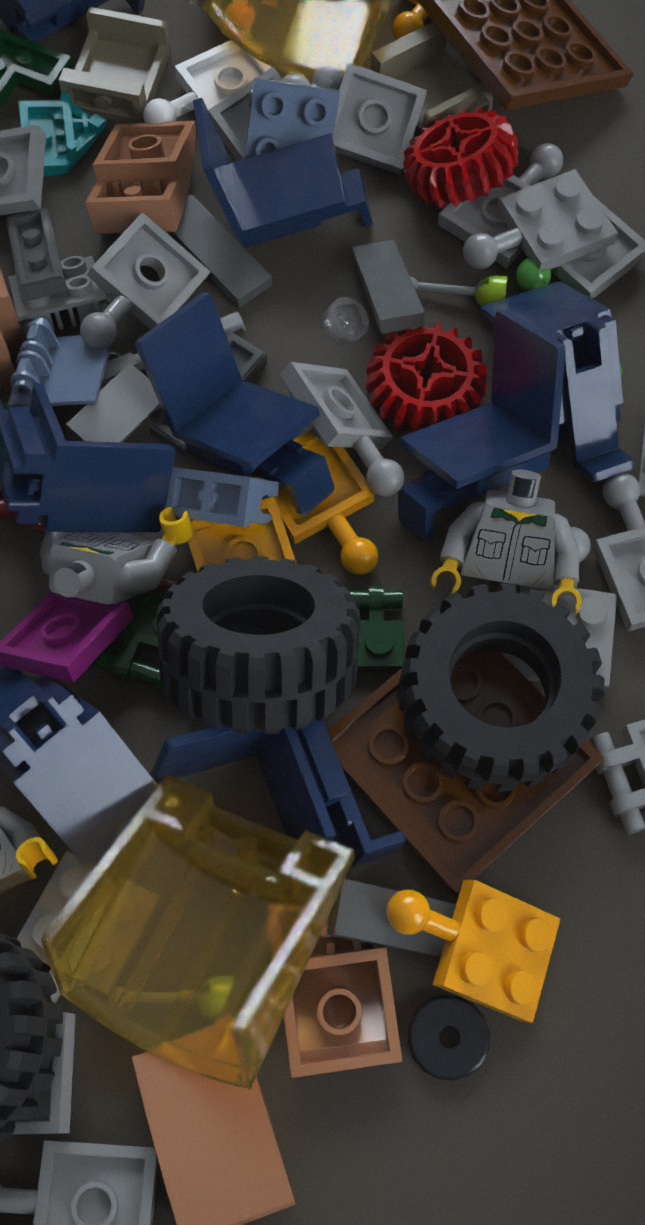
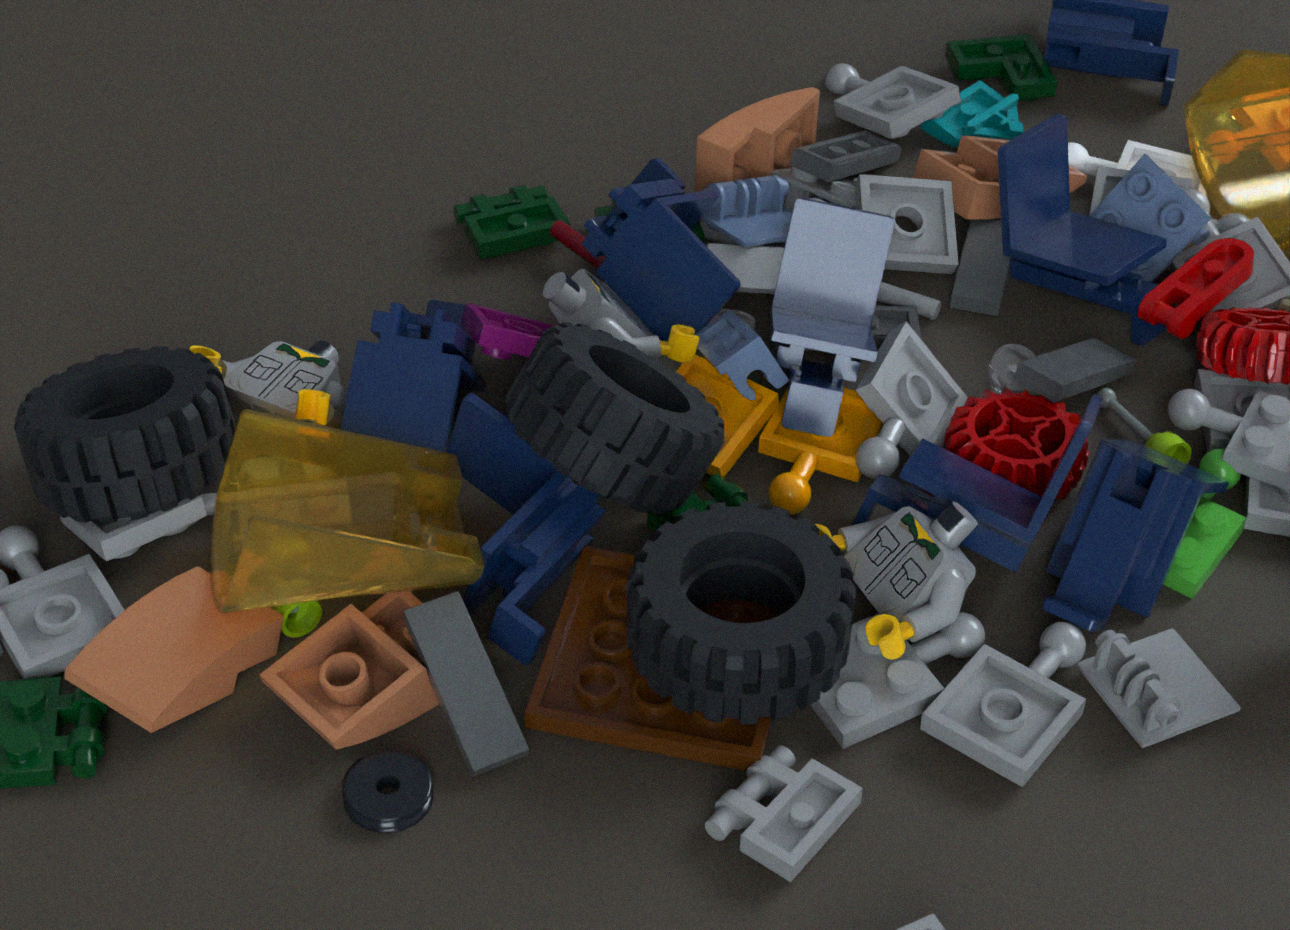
camera: 55 degrees right, 25 degrees down
(118, 65) = (1097, 114): dark tan panel -> none
(380, 148) = (1198, 286): none -> red plate
(492, 945) = (495, 761): light orange plate -> none

